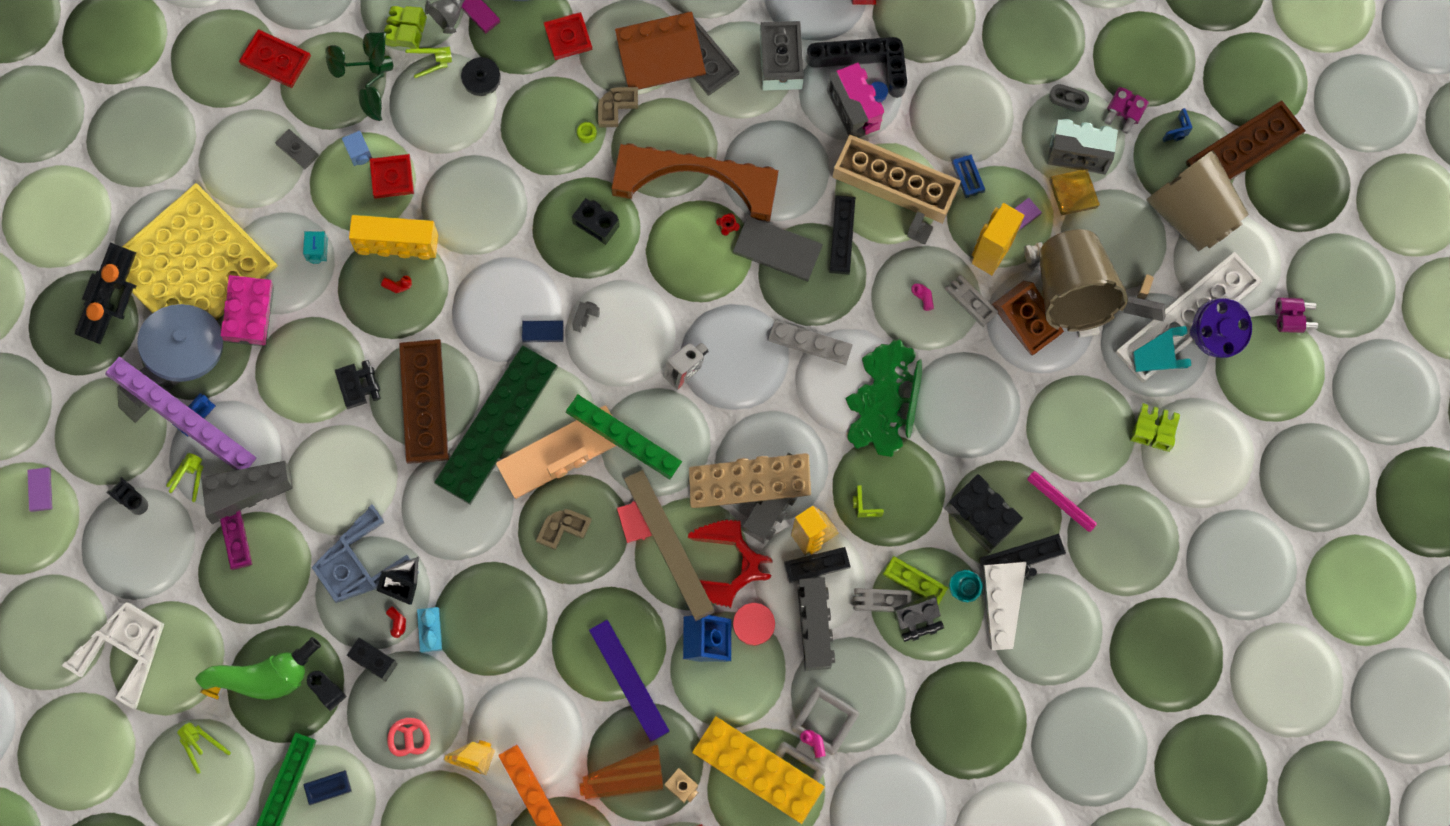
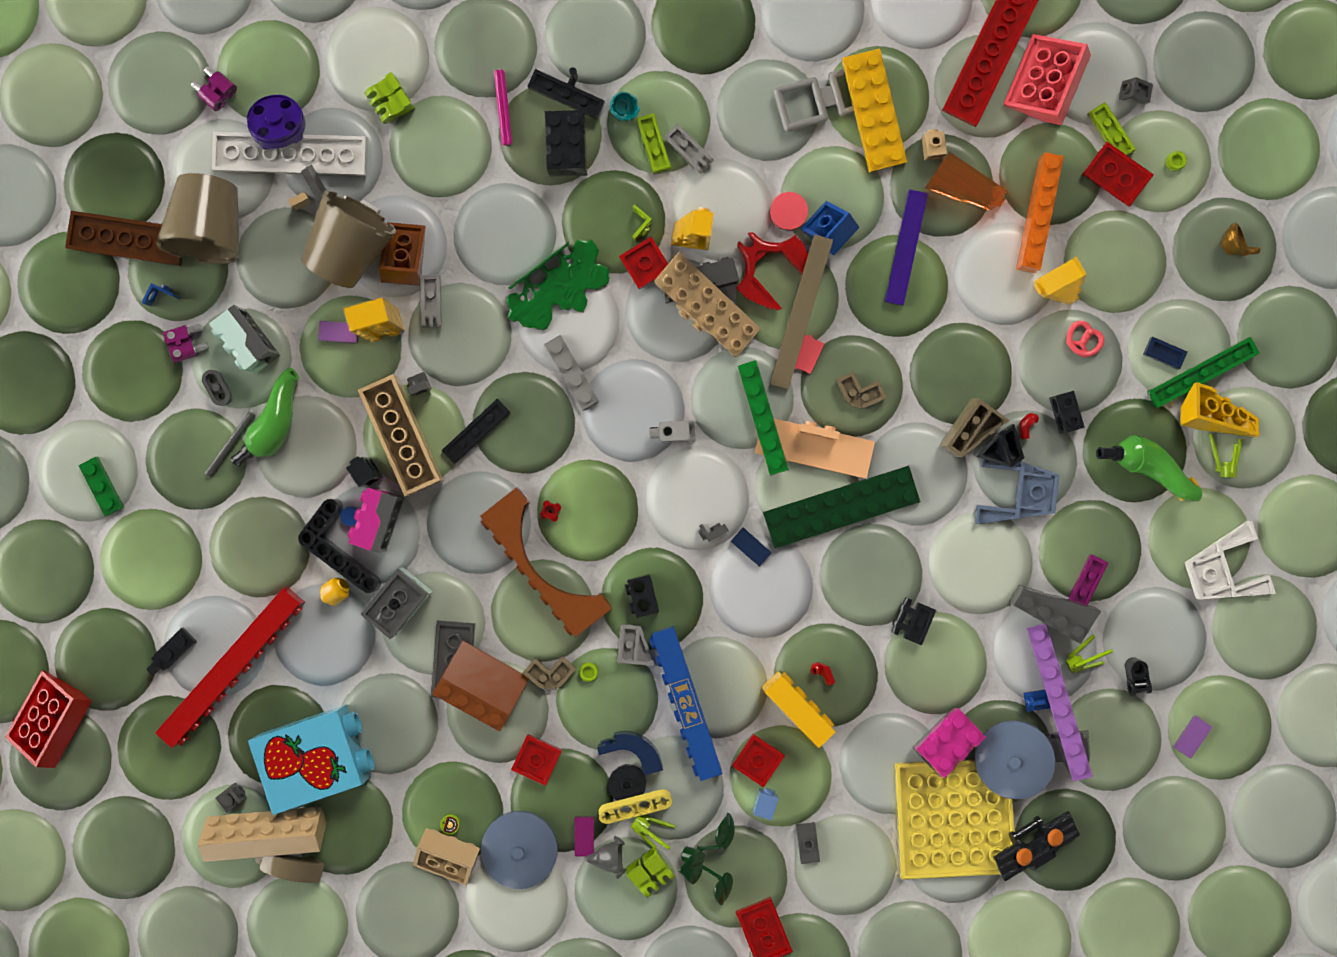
camera: 140 degrees left, 15 degrees up
(245, 770) = (1211, 412): none -> yellow wedge
(315, 246) = (858, 752): teal brick -> none
(327, 692) = (1114, 417): black piece -> none
(423, 401) = (878, 567): reddish brown plate -> none
(429, 629) = (1010, 399): medium azure tile -> none
(442, 576) = (972, 427): none -> dark tan wedge
(473, 45) = (634, 803): none -> light yellow beam
(488, 171) = (686, 702): none -> blue brick
(498, 109) = (637, 744): none -> dark blue arch
(568, 178) = (633, 646): none -> light grey wing
(777, 248) = (531, 461): dark grey tile -> none
(814, 624) = (750, 171): dark grey wedge -> none
(814, 740) = (820, 93): dark pink arm -> none
(817, 565) = (722, 217): black plate -> none
(832, 477) = (644, 262): none -> red plate
(836, 27) = (334, 591): none -> yellow head
(898, 128) = (364, 471): none -> black brick
(917, 612) = (675, 118): black plate -> none
(924, 294) = (459, 335): dark pink arm -> none
(981, 189) = (352, 398): blue tile -> none
(999, 103) = (271, 428): none -> bright green animal
(1003, 600) = (605, 77): white wing -> none
(1019, 67) = (229, 444): none -> dark grey bar
(1032, 253) = (354, 295): white wheel -> none
(1074, 192) = (282, 315): clear yellow plate -> none
(1160, 353) = (335, 144): teal flag -> none

